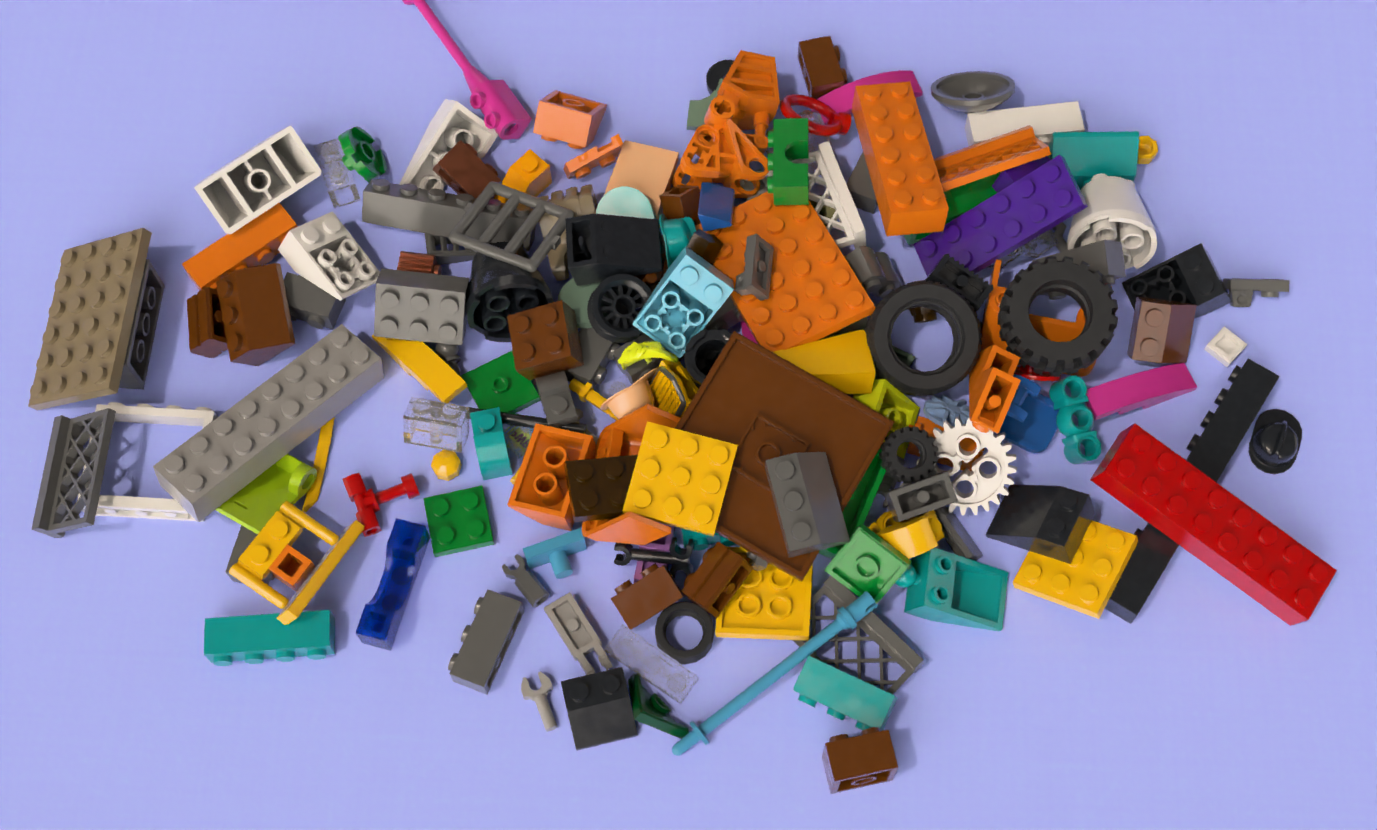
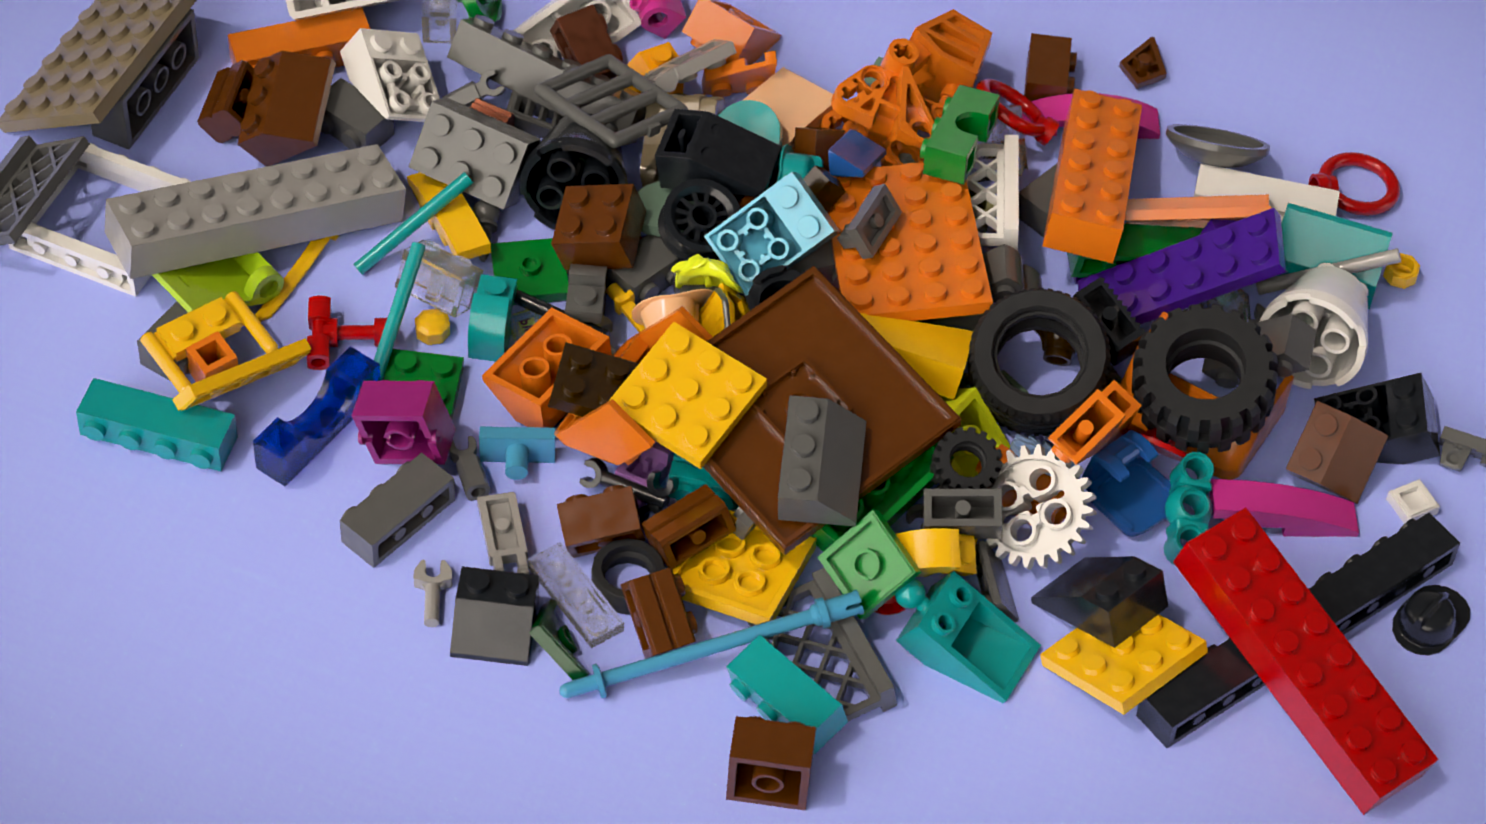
camera: 15 degrees right, 15 degrees down
(393, 246) = (472, 90): none -> bar
(397, 384) = (413, 223): none -> teal bar
(417, 467) = (399, 306): none -> teal bar
(463, 569) = (402, 421): none -> magenta brick
(555, 166) = (685, 67): none -> light grey hinge
(724, 661) = (659, 612): none -> reddish brown brick
(888, 35) = (1144, 64): none -> reddish brown piece
(1063, 94) = (1326, 180): none -> red piece
(1119, 165) = (1352, 266): none -> light grey bar

